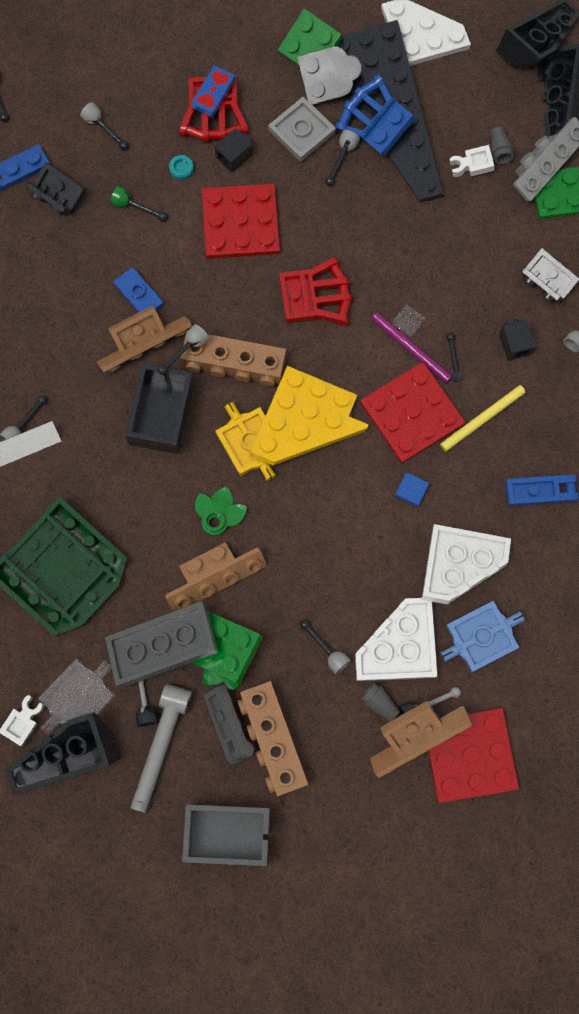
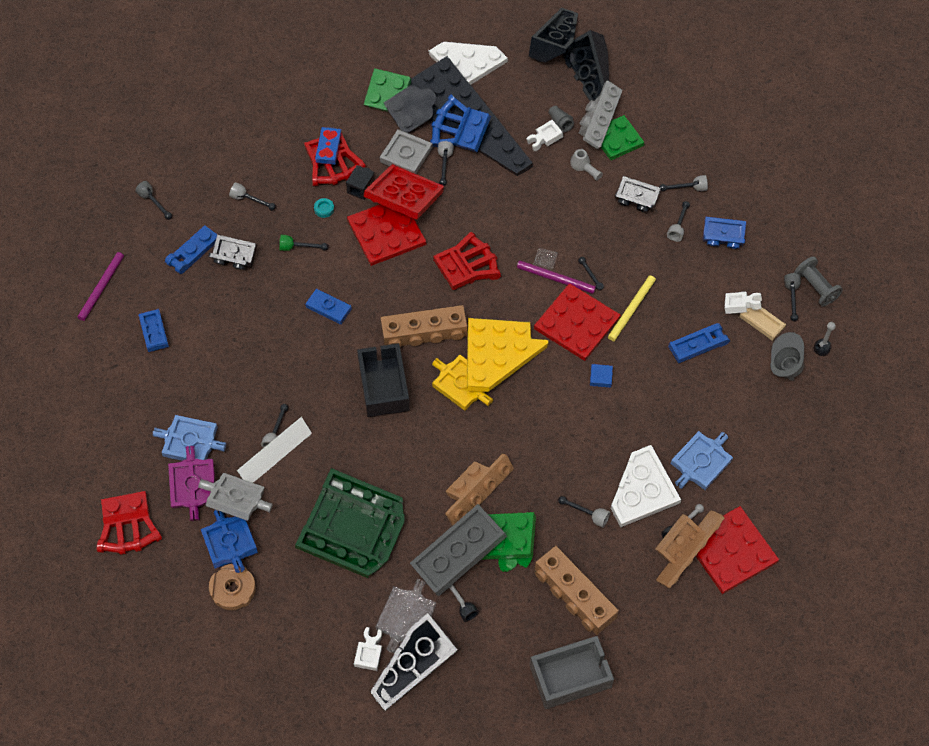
camera: 20 degrees left, 15 degrees down
(140, 334) = (342, 334): medium nougat bracket -> none
(174, 702) = (486, 591): light grey piece -> none
(195, 336) = (391, 317): hinge -> none
(219, 507) = (459, 439): green plate -> none
(228, 725) = (535, 592): dark grey plate -> none
(277, 180) = (404, 191): none -> red plate
(379, 702) = (645, 534): dark grey cone -> none
(461, 561) = (662, 412): white plate -> none
(504, 214) = (580, 162): none -> light grey bar
(517, 339) = (633, 244): black brick -> none

